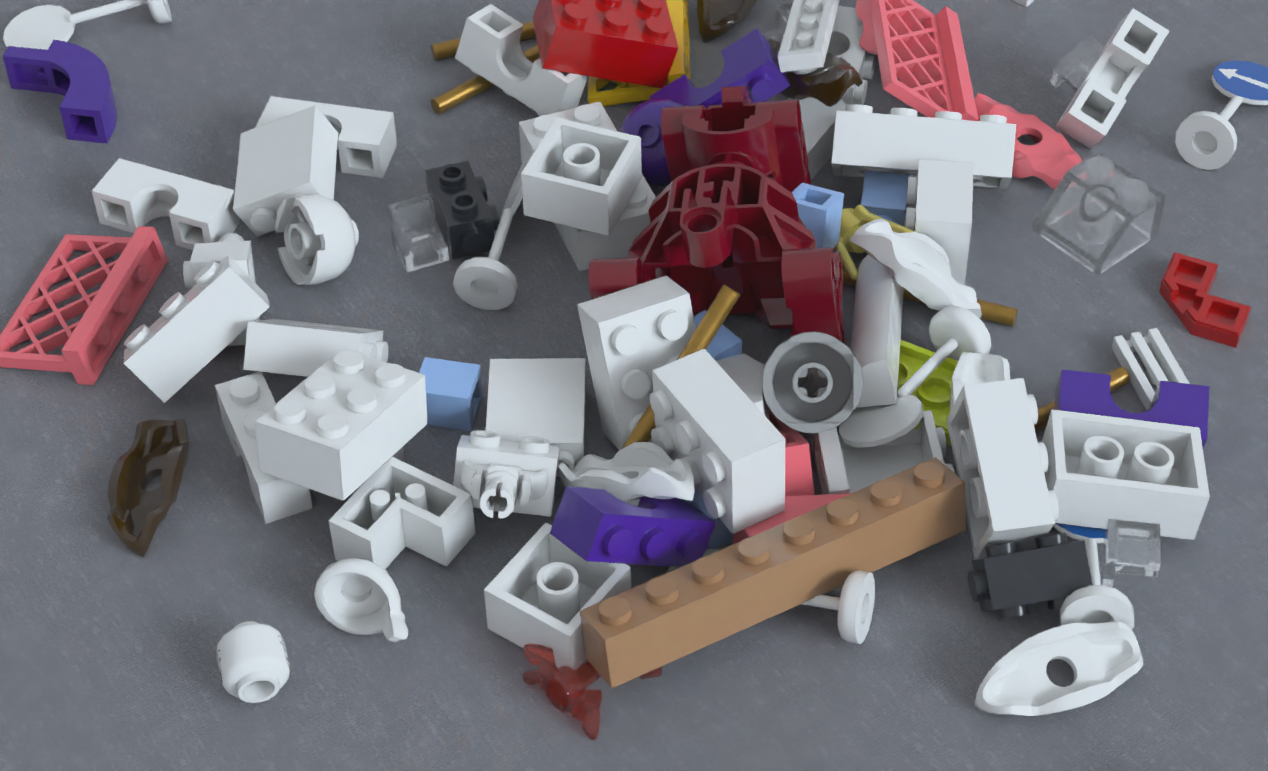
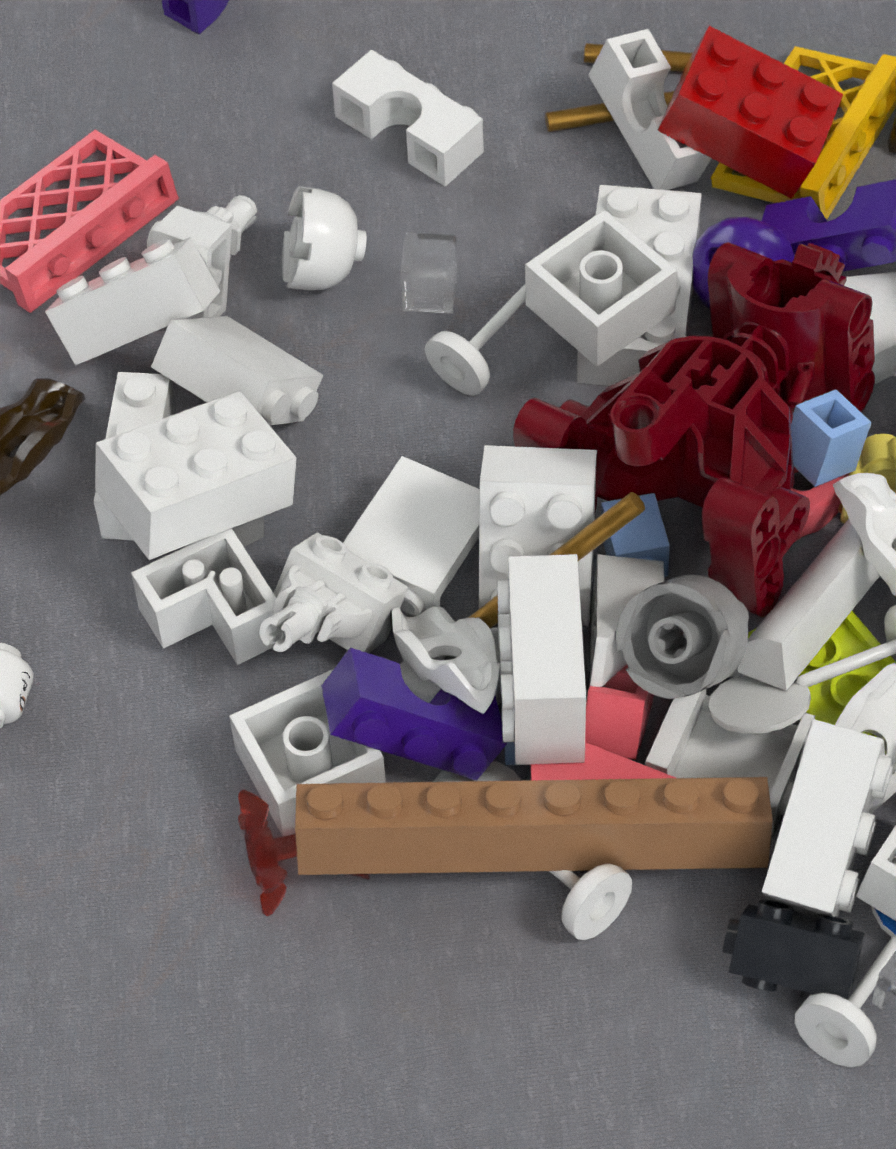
camera: 30 degrees right, 10 degrees up
(138, 193) = (185, 112): white arch -> none
(282, 162) = (335, 143): white brick -> none
(361, 599) = (130, 666): white hat -> none
(452, 393) = (345, 472): light blue brick -> none
(462, 209) = (486, 262): black brick -> none
(1098, 653) = (813, 1080): white piece -> none

